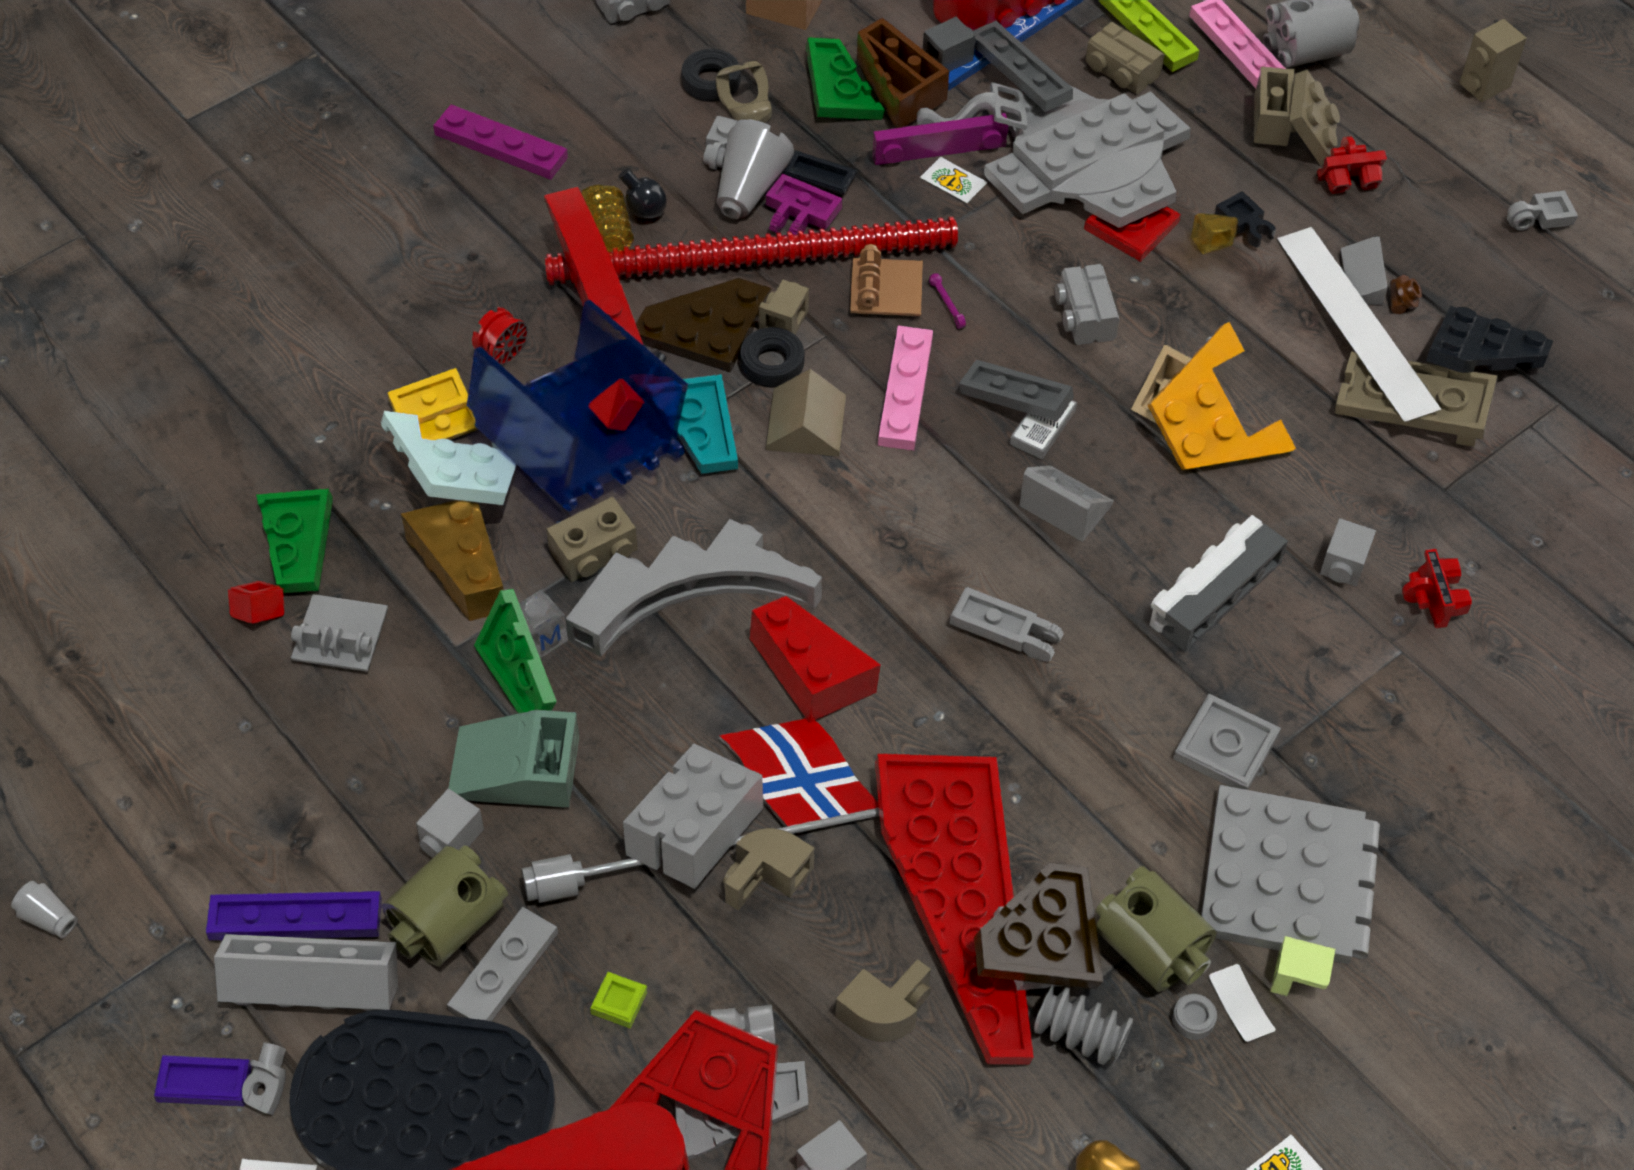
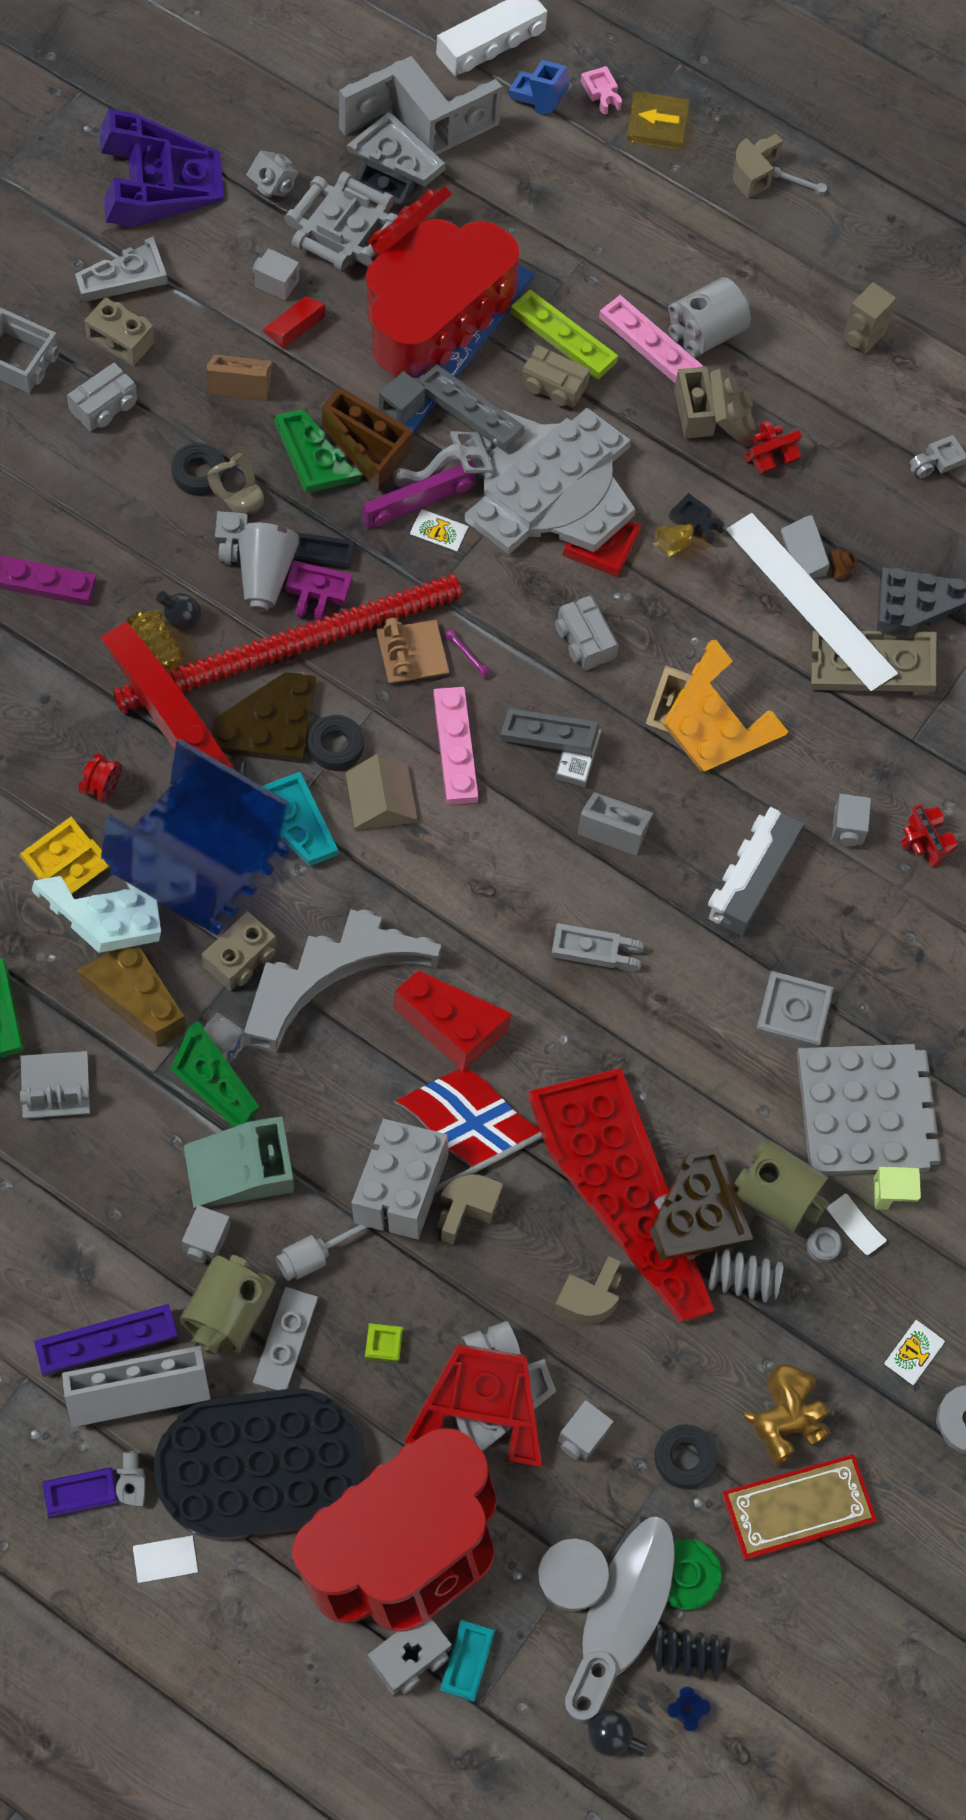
camera: 20 degrees left, 10 degrees up
(617, 405) = (224, 825): red slope -> none
(785, 307) = (334, 694): dark tan brick -> none

